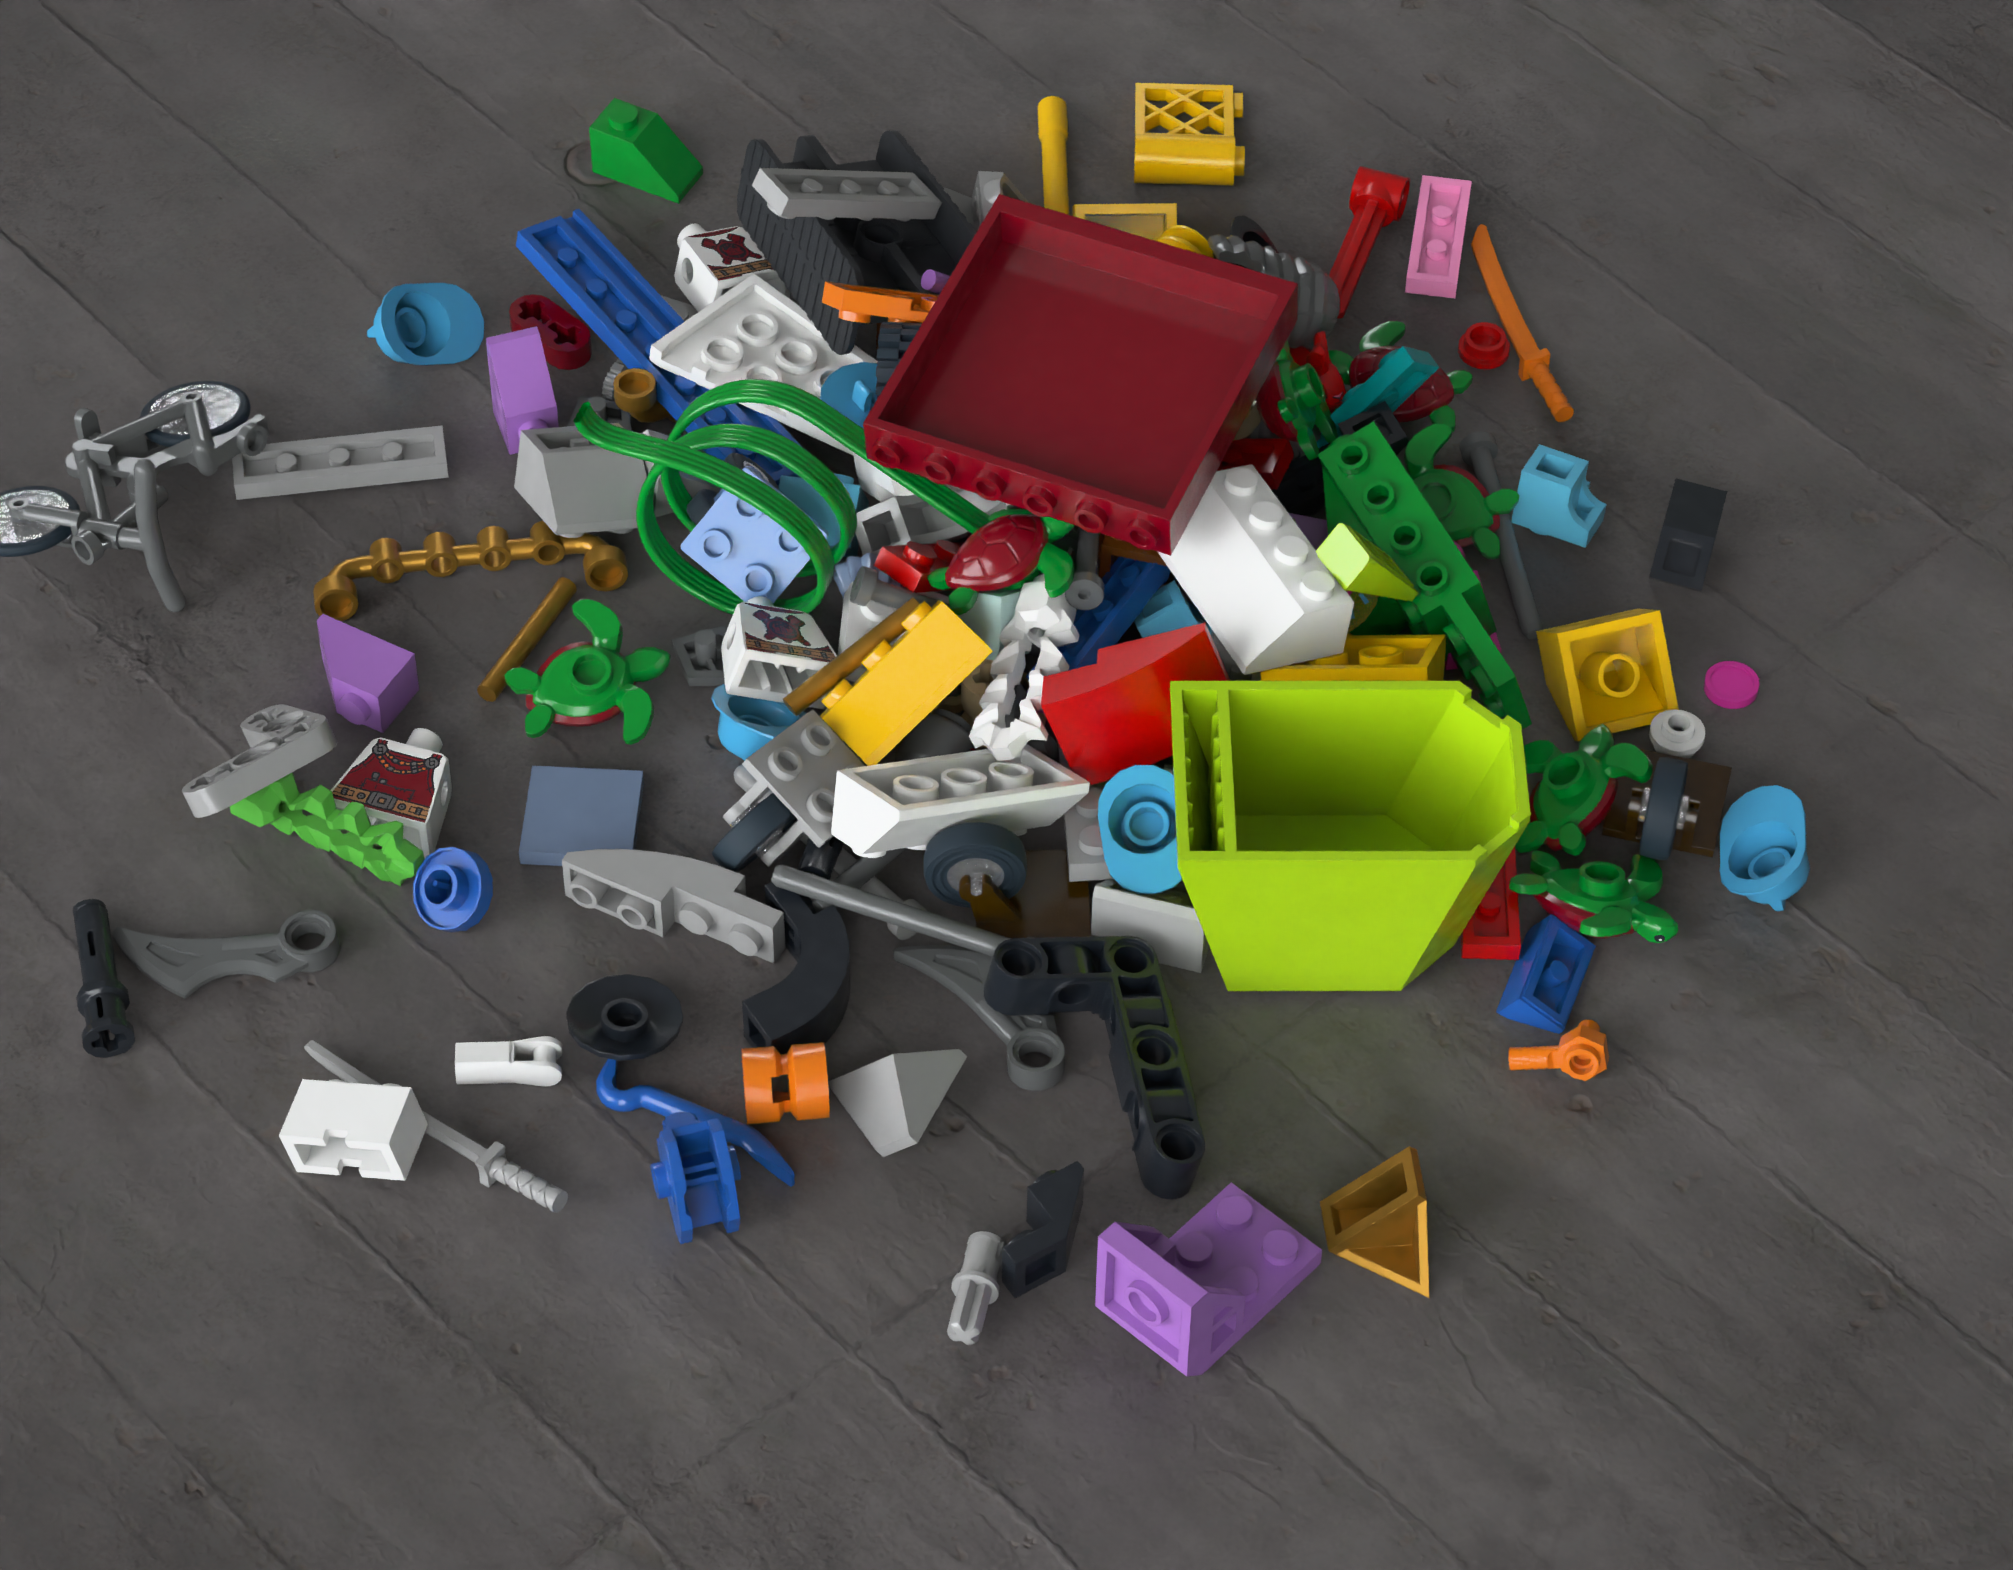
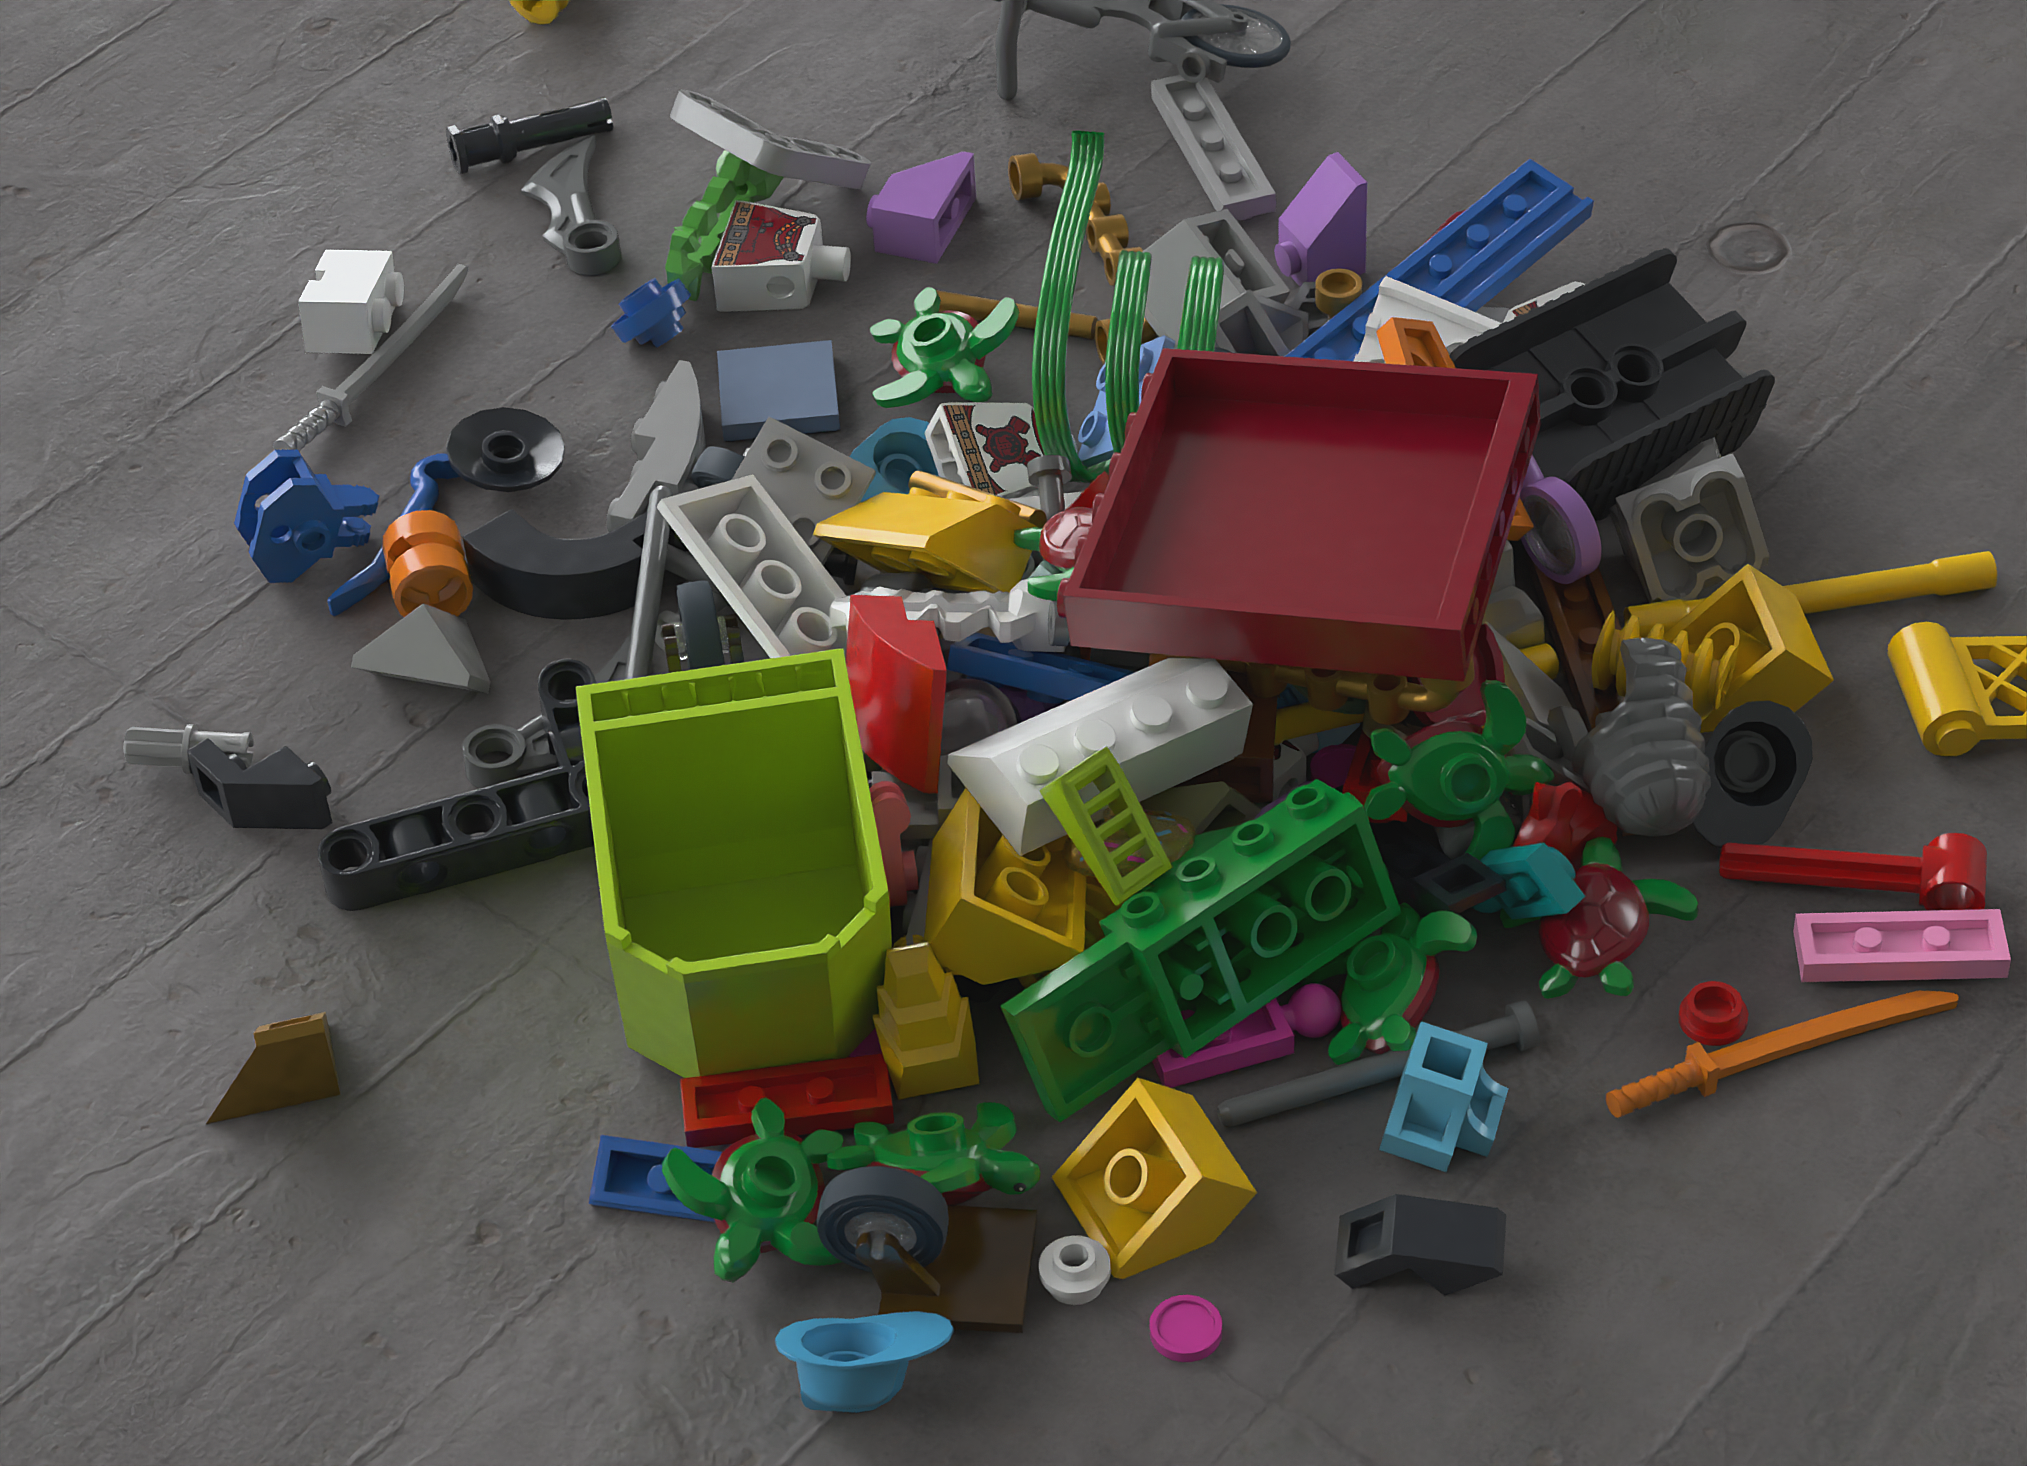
camera: 85 degrees right, 5 degrees down
(428, 324) = (1412, 153): dark azure piece -> none
(519, 1061) = (453, 386): white bar -> none
(642, 152) = (1750, 256): green slope -> none
(845, 194) = (1590, 320): light grey plate -> none
(1203, 1284) = (164, 896): medium lavender bracket -> none
(1579, 1053) = (534, 1202): orange piece -> none

